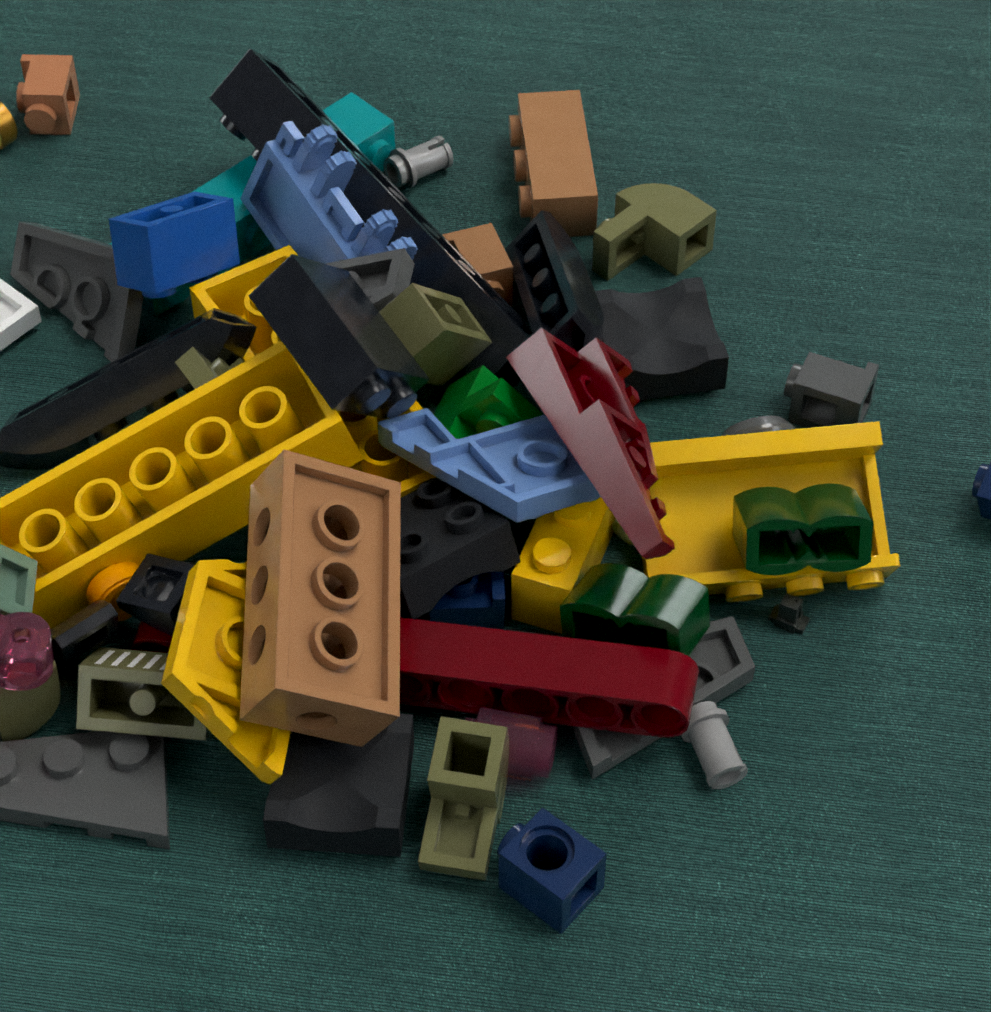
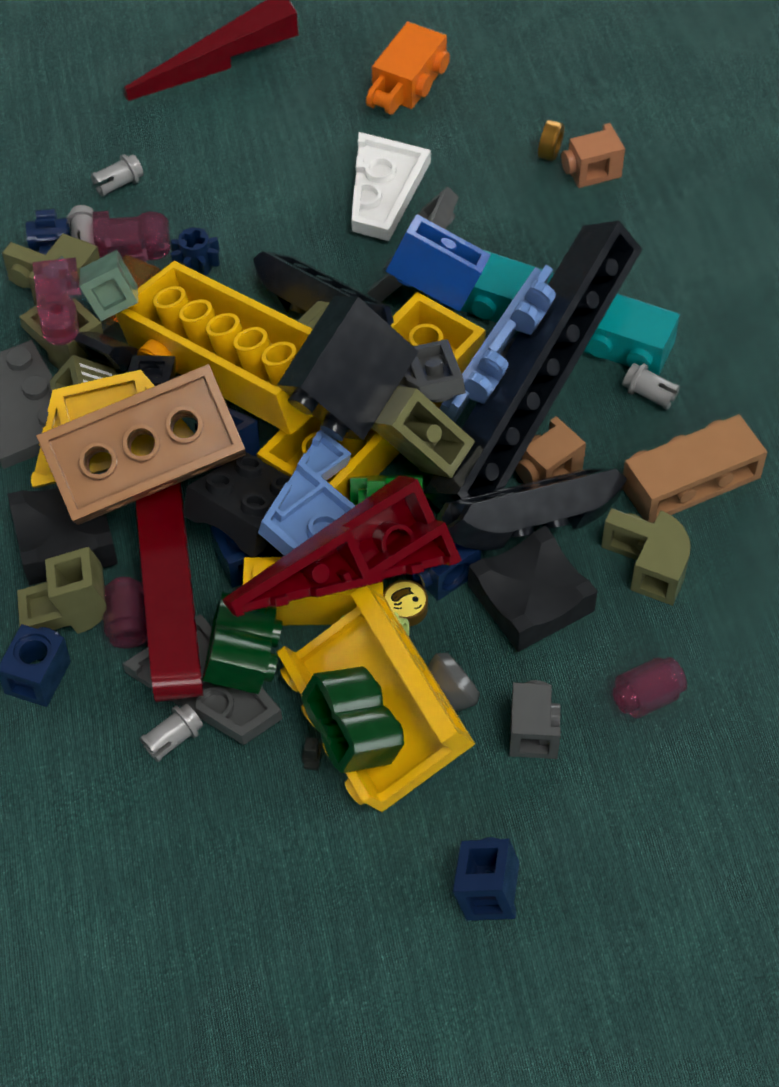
camera: 70 degrees right, 5 degrees up
(824, 289) = (649, 686): none -> clear pink brick

